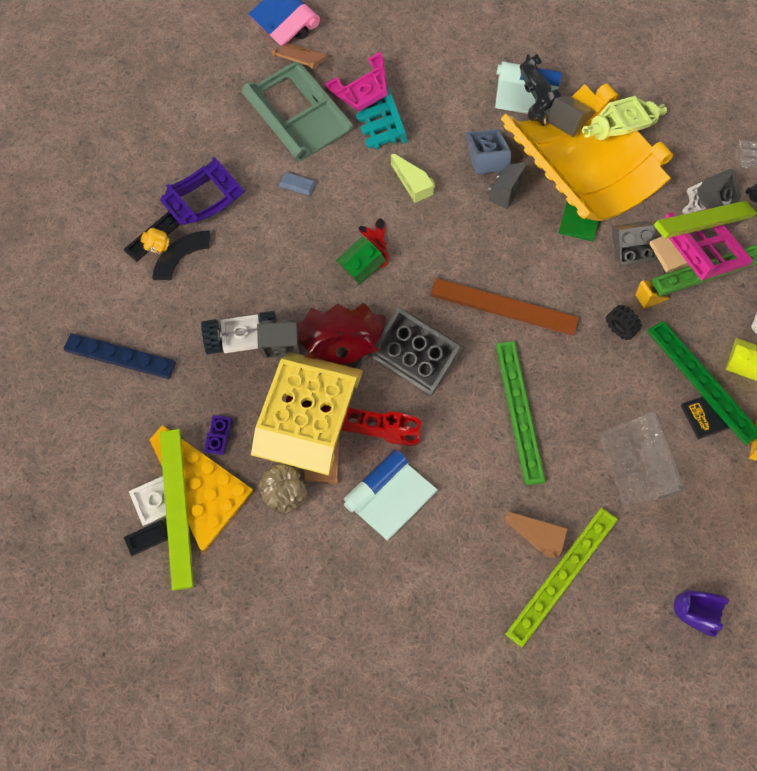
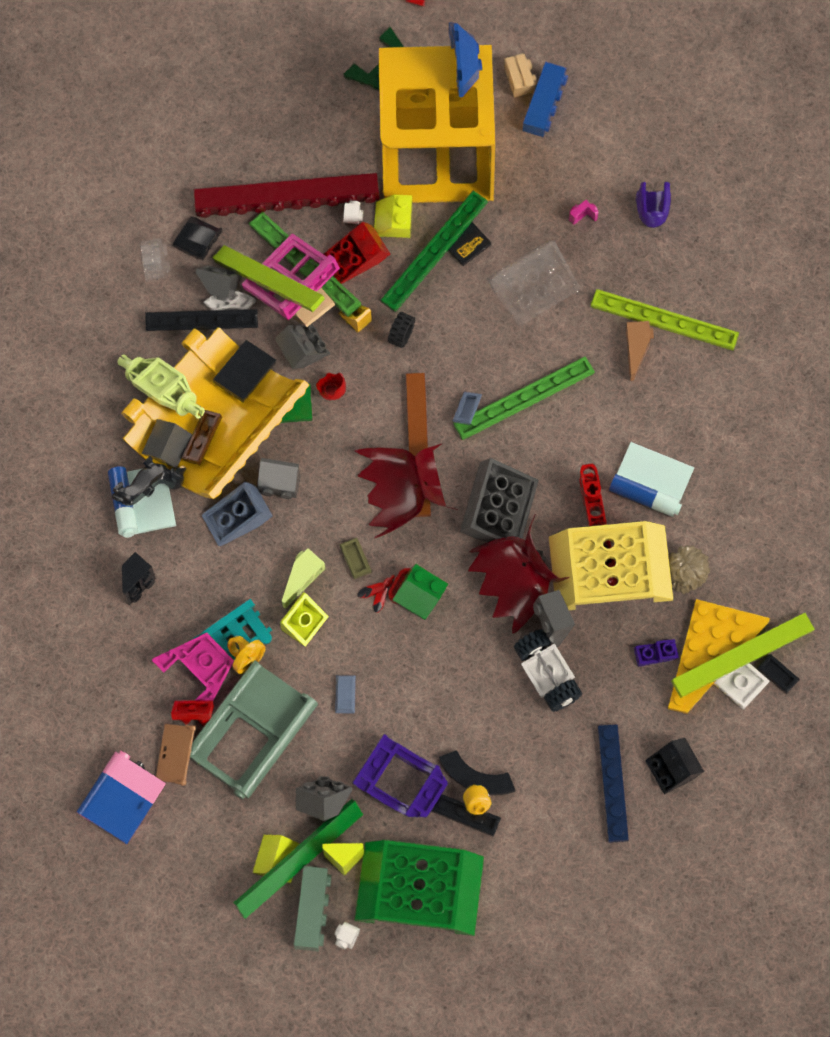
camera: 110 degrees left, 5 degrees up
(98, 199) = (449, 891): none -> green slope
(100, 123) = (346, 935): none -> white plate
(105, 409) = (674, 765): none -> black slope
(133, 107) = (311, 908): none -> sand green brick
(160, 131) = (344, 855): none -> neon yellow slope
(174, 106) = (297, 859): none -> green tile
(185, 99) = (271, 852): none -> neon yellow slope
(214, 134) = (322, 797): none -> dark grey slope
(328, 71) = (192, 710): none -> red tile
(357, 117) = (246, 654): none -> yellow tile
(373, 168) = (303, 619): none -> neon yellow slope
(414, 225) = (355, 558): none -> olive tile
(456, 61) = (136, 577): none -> black slope
(463, 277) = (396, 475): none -> dark red piece
(524, 355) = (467, 408): none -> sand blue tile
(568, 142) = (201, 437): none -> reddish brown tile
(583, 252) = (332, 386): none -> red hair
(621, 189) = (244, 371): none -> black tile
(684, 174) = (201, 319): none -> black tile
(714, 536) = (579, 211): none -> dark pink bracket
(720, 315) = (358, 252): none -> red slope

